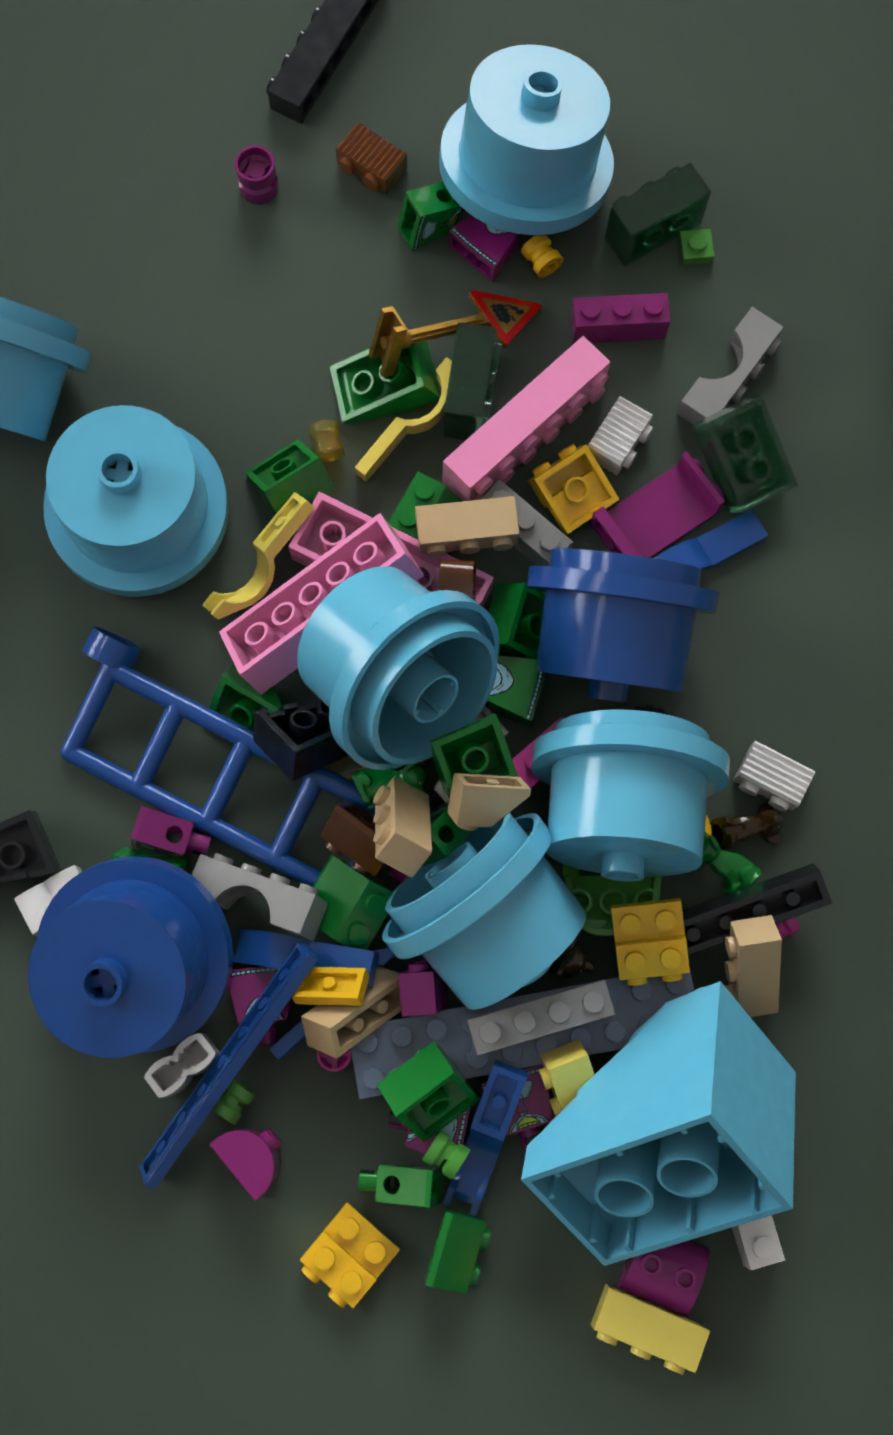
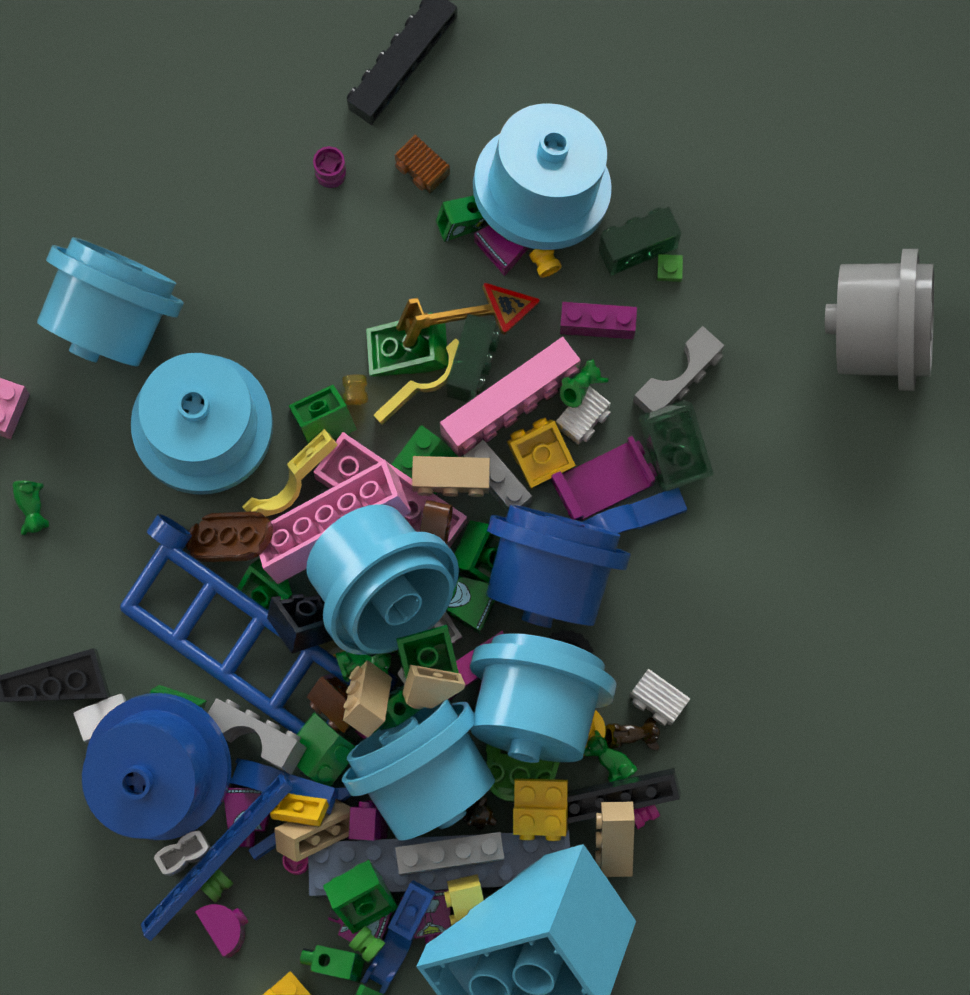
camera: 10 degrees right, 0 degrees up
(153, 827) = (182, 678): magenta torso -> none
(191, 643) = (230, 536): none -> reddish brown tile
(607, 400) = (575, 389): none -> green animal

